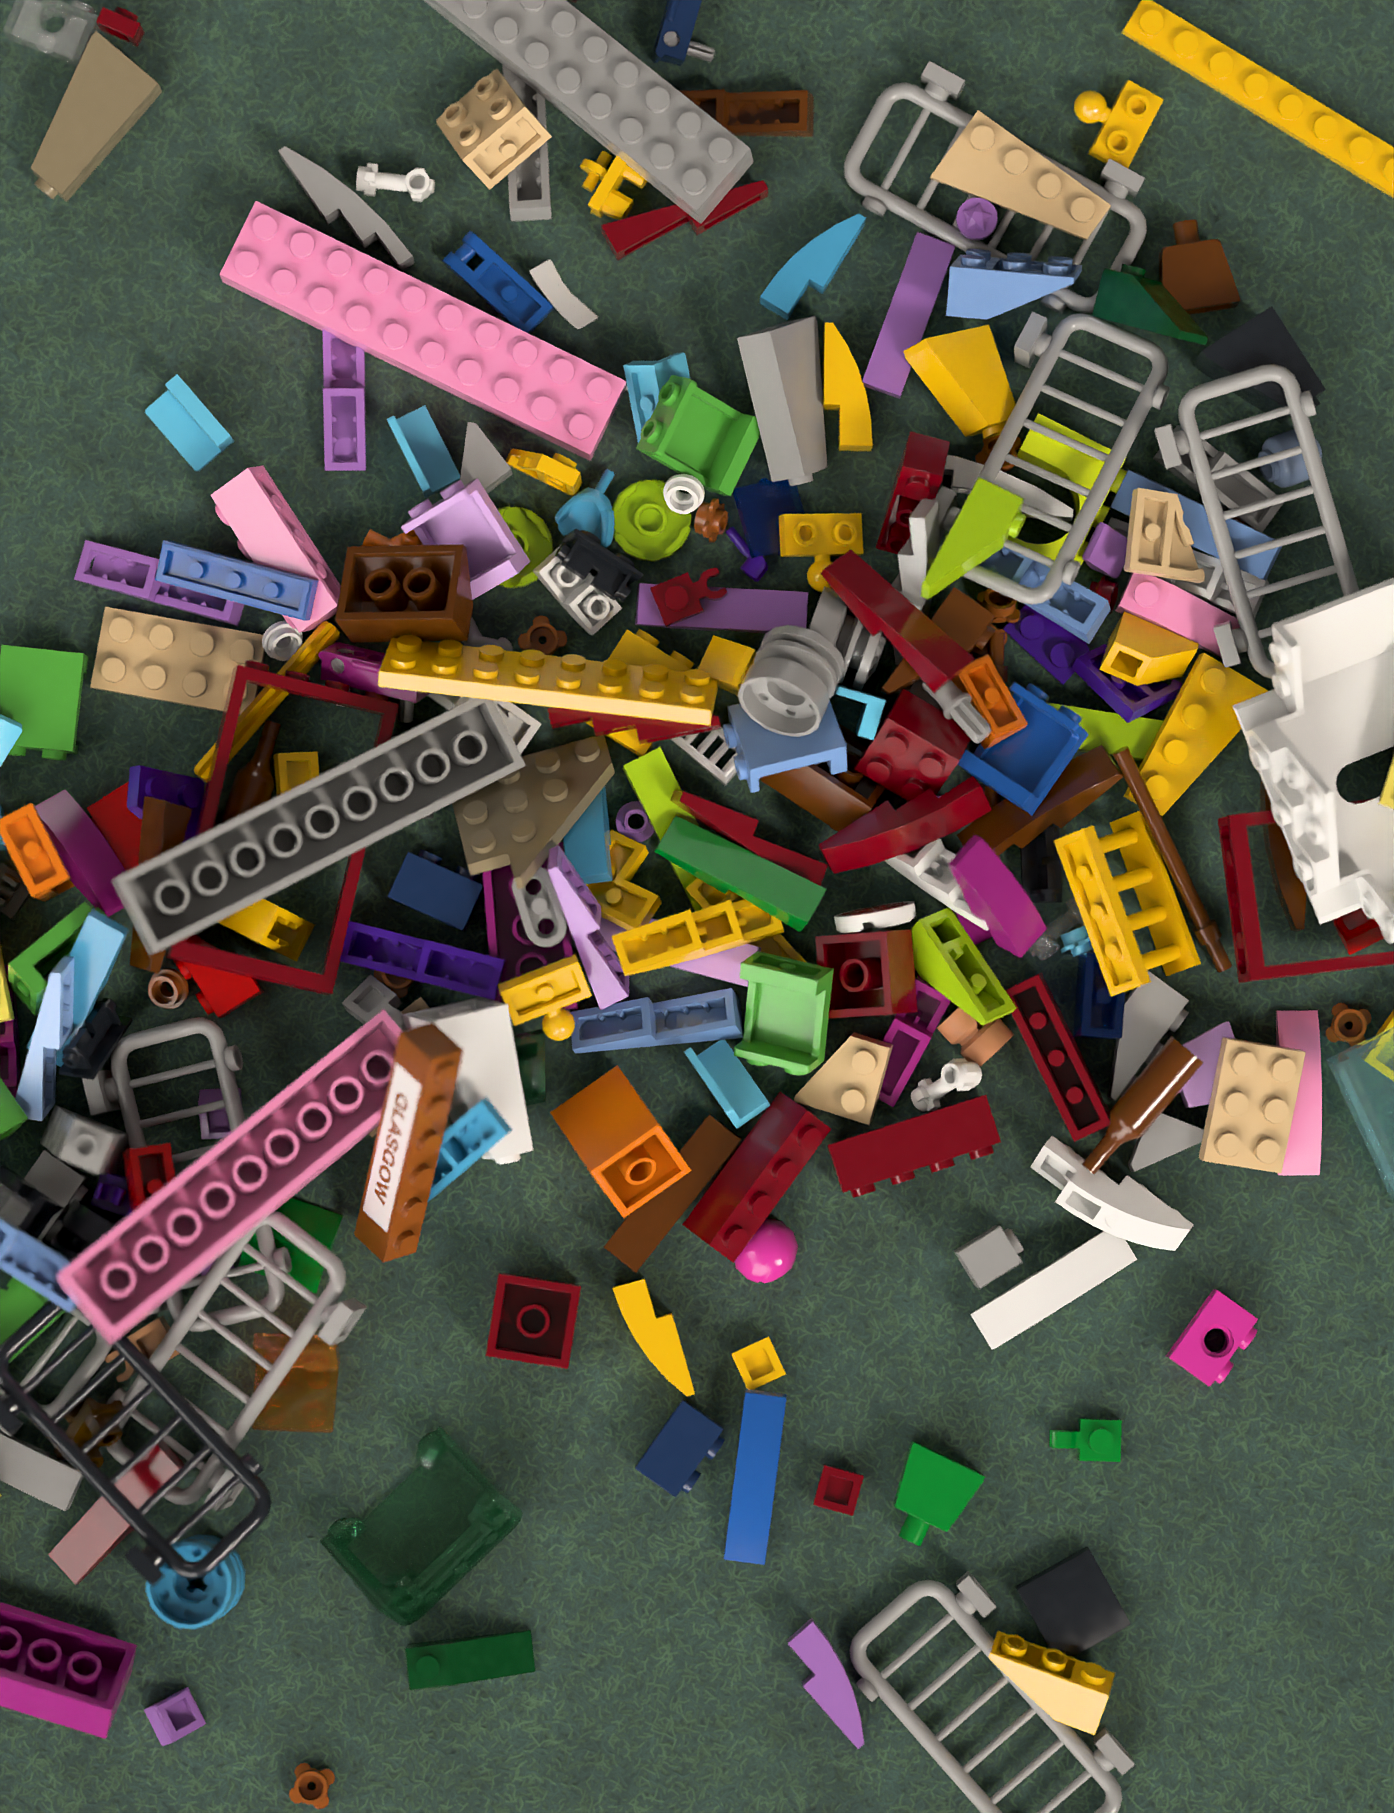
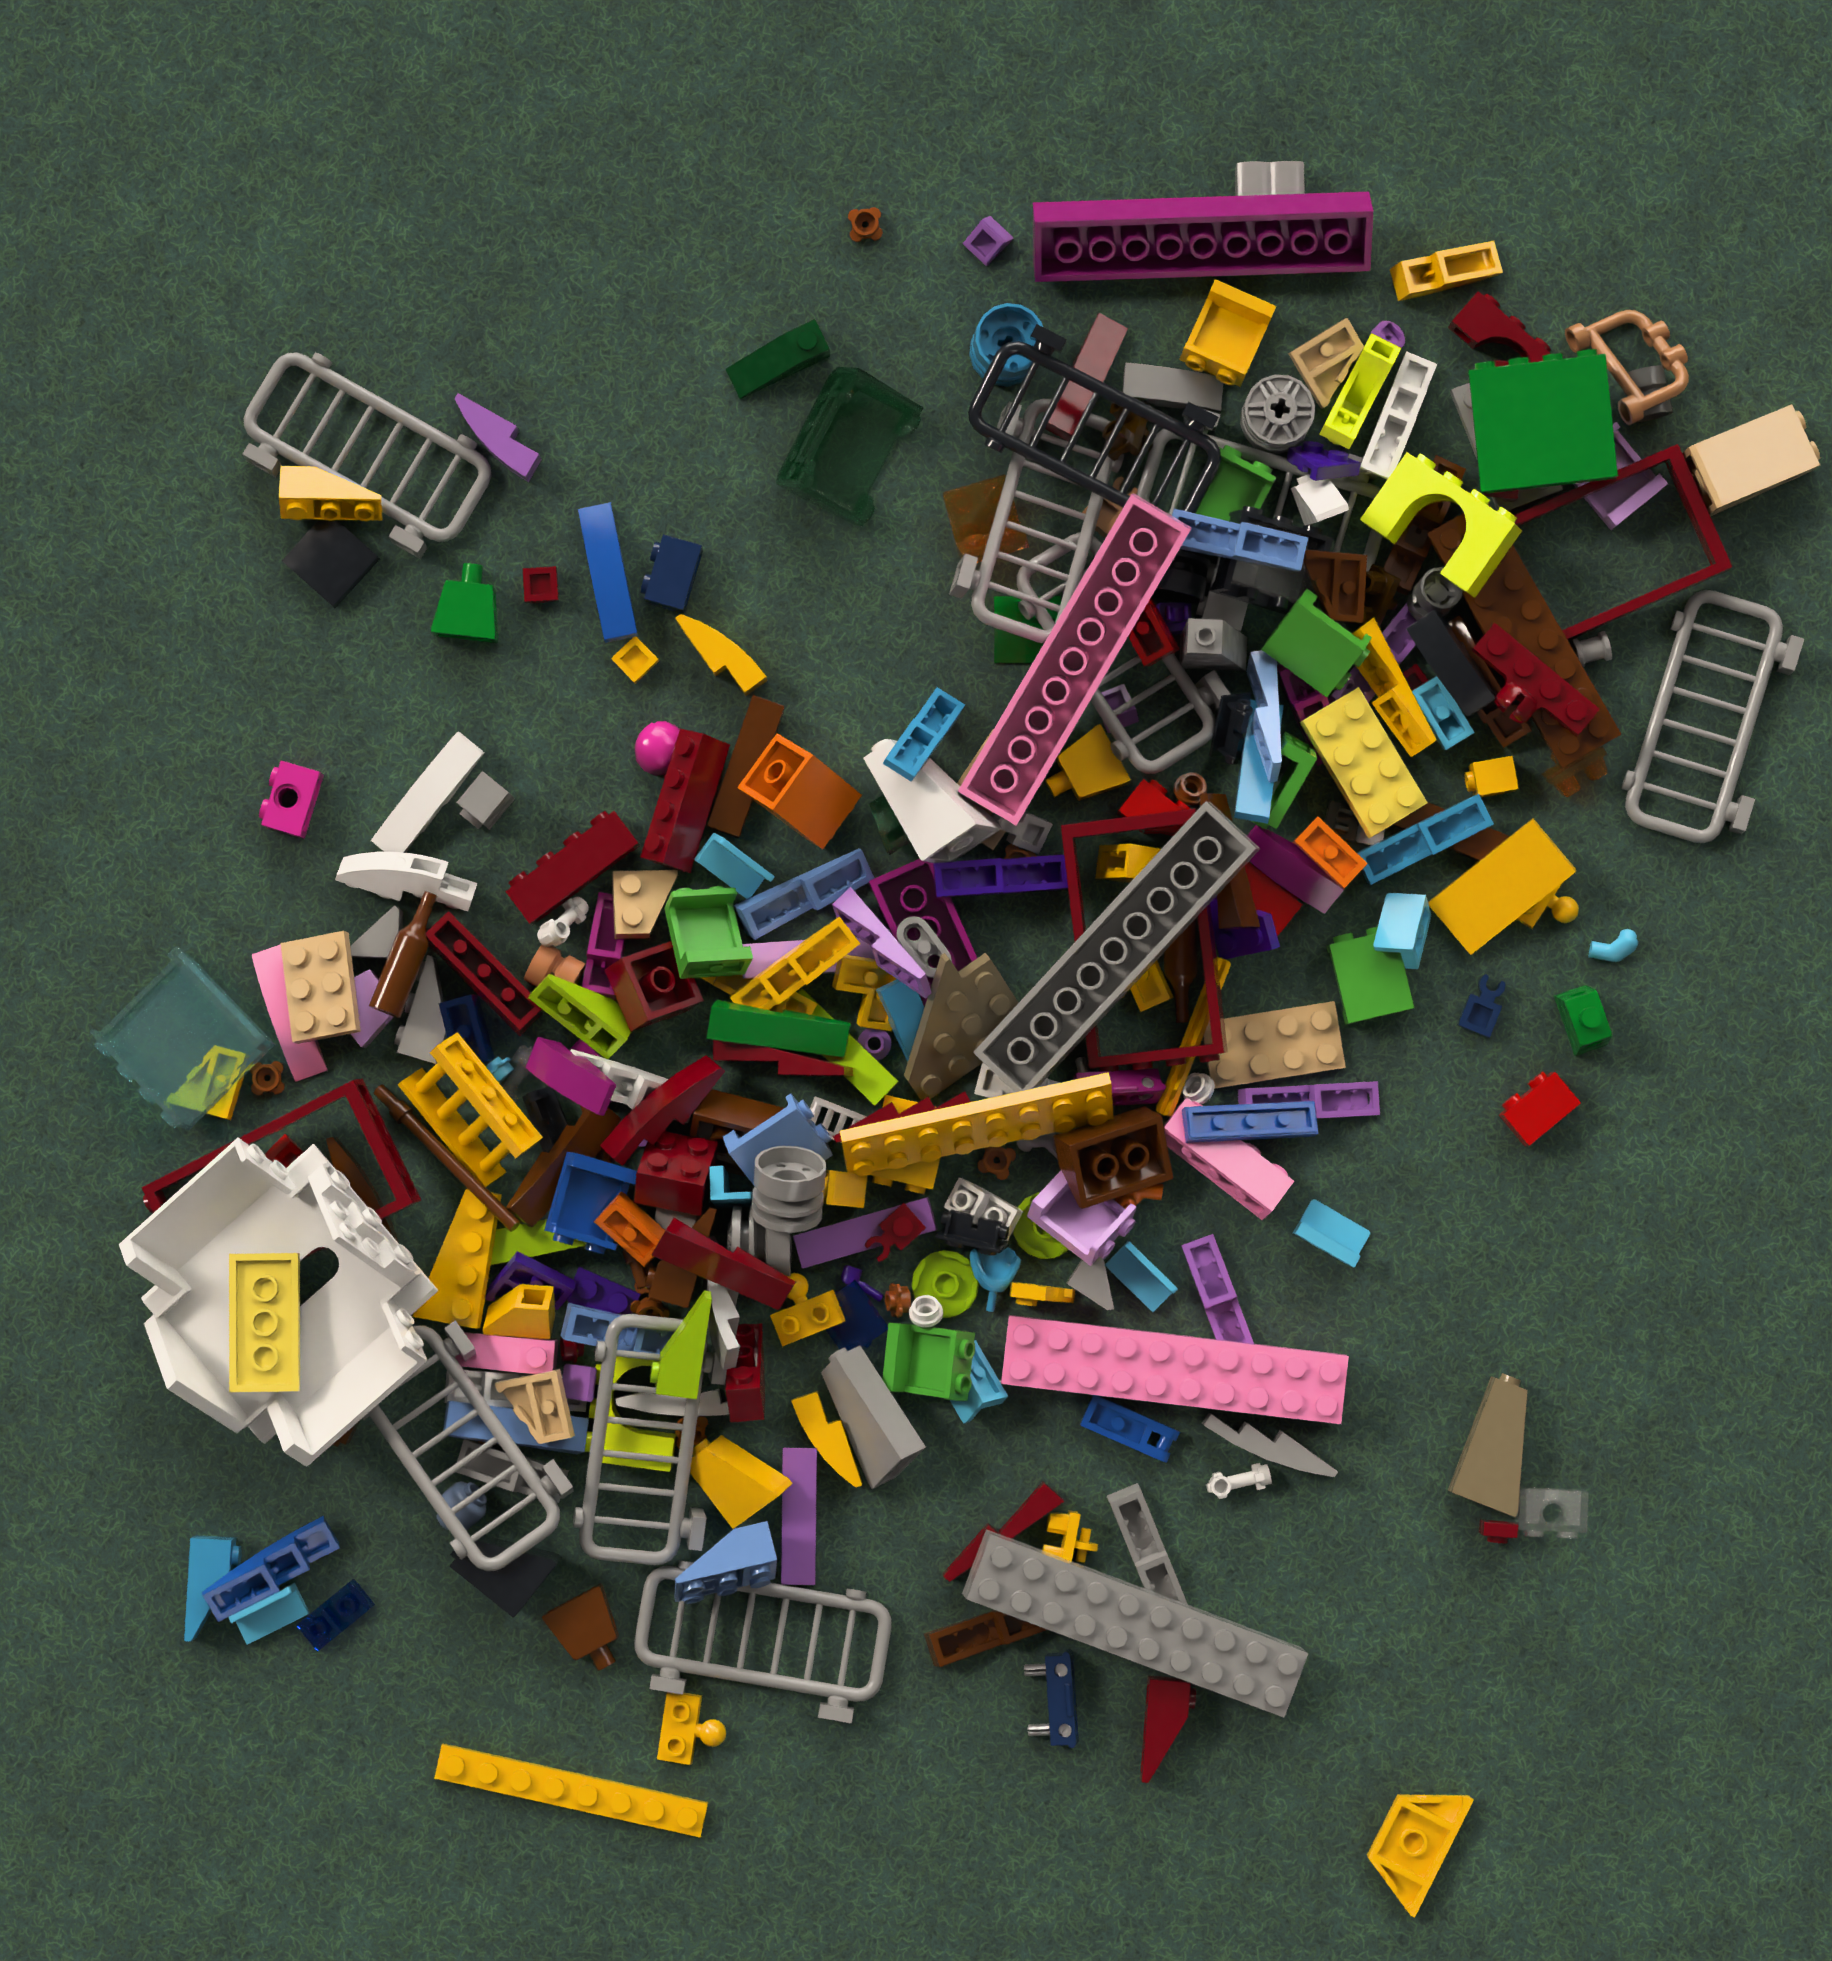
camera: 160 degrees right, 0 degrees up
(276, 1053) = (1088, 767): none -> yellow torso
(408, 1141) = (960, 729): dark orange brick -> none
(436, 890) = (1010, 936): dark blue brick -> none
(492, 129) = (1177, 1548): tan bracket -> none
(533, 1320) = (818, 631): dark red brick -> none
(546, 993) = (893, 881): yellow plate -> none
(560, 297) = (1077, 1435): white sticker -> none
(811, 266) = (888, 1527): dark azure slope -> none
(875, 916) = (661, 1033): white tile -> none
(958, 706) = (652, 1215): light grey axle -> none
(976, 219) = (771, 1610): medium lavender tile -> none
(1007, 172) = (752, 1654): tan wing -> none
(1094, 1439) = (357, 691): green plate -> none
(1143, 304) = (614, 1585): dark green slope -> none

